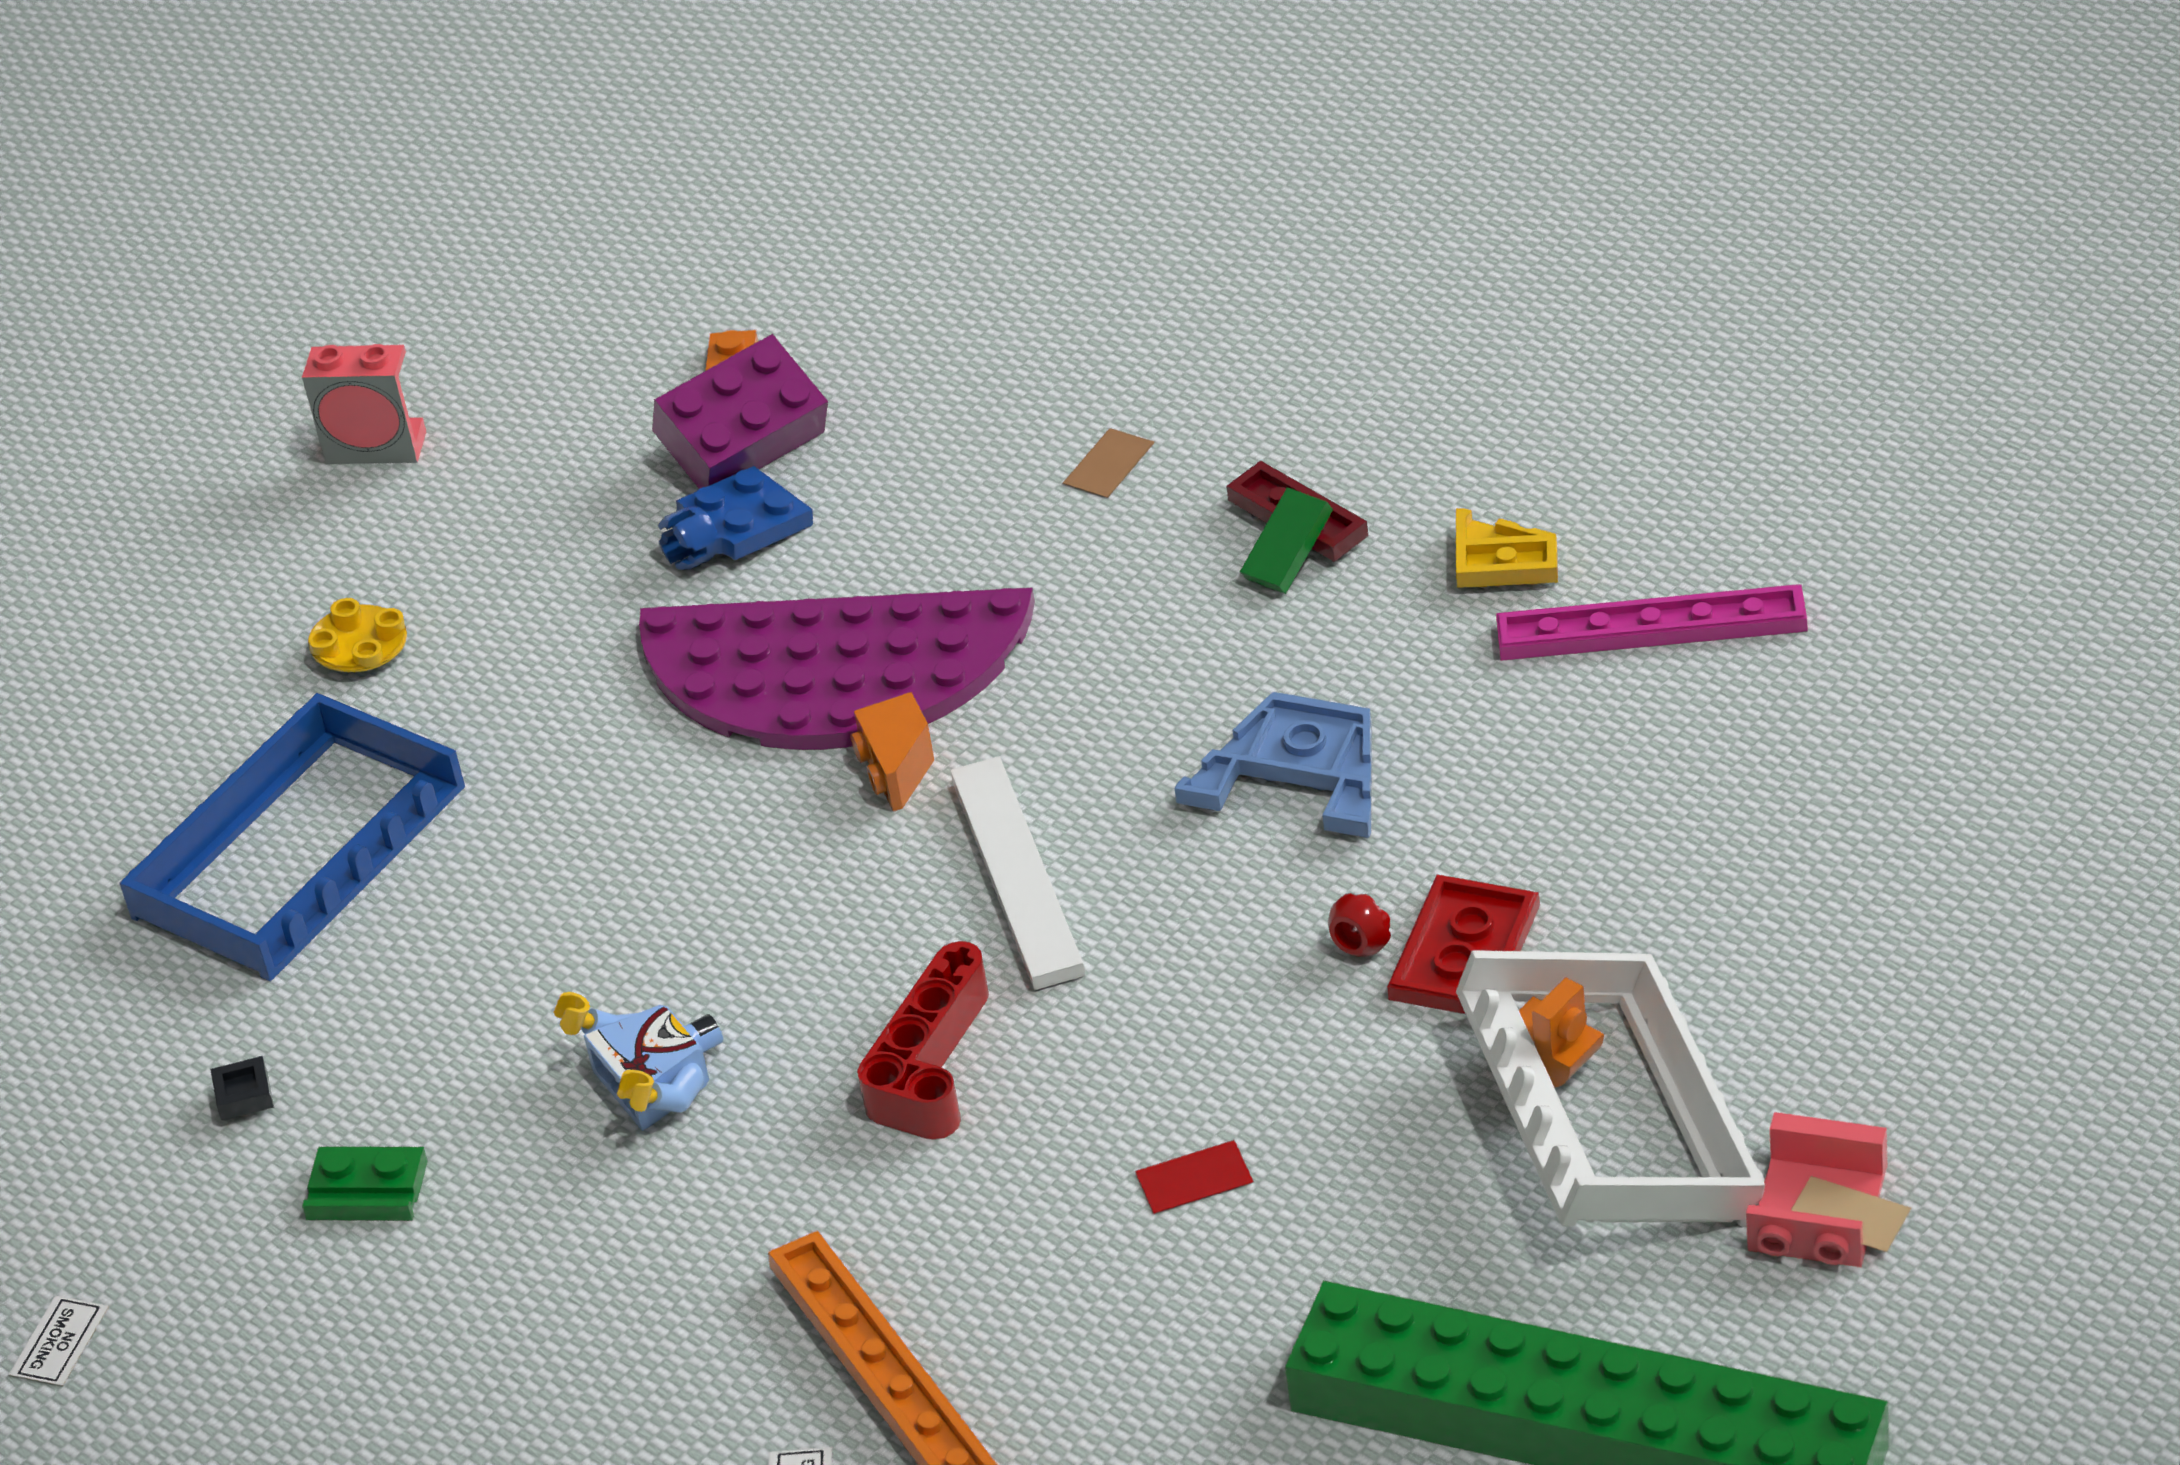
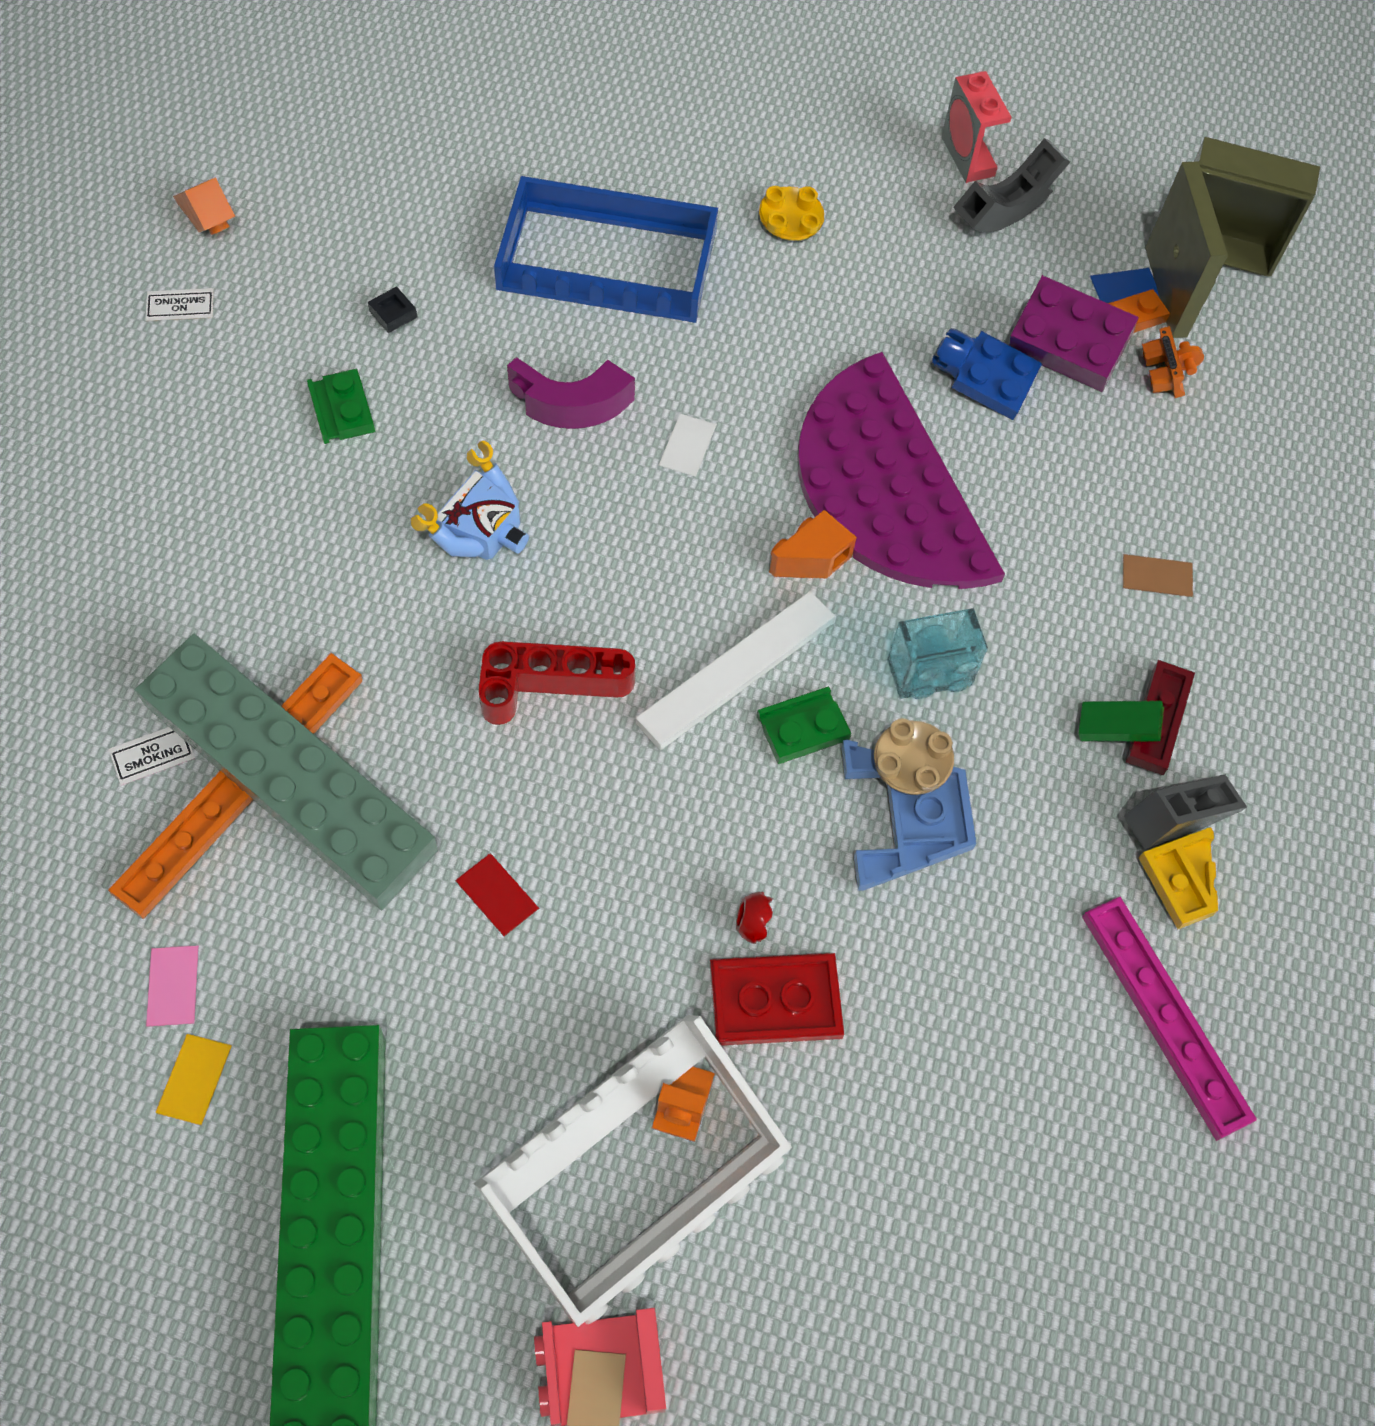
camera: 55 degrees right, 20 degrees up
(483, 399) = (1005, 203): none -> dark grey arch
(517, 941) = (572, 403): none -> magenta arch
(654, 841) = (687, 445): none -> white sticker
(678, 205) = (1229, 211): none -> olive container
(678, 361) = (1123, 284): none -> blue sticker
(831, 344) = (1165, 351): none -> orange hips
(923, 1314) = (288, 771): none -> sand green brick
(1115, 664) = (936, 654): none -> clear light blue brick
(1128, 829) = (803, 725): none -> green plate
(1235, 722) = (914, 757): none -> tan dish
(1424, 530) = (1183, 810): none -> dark grey slope

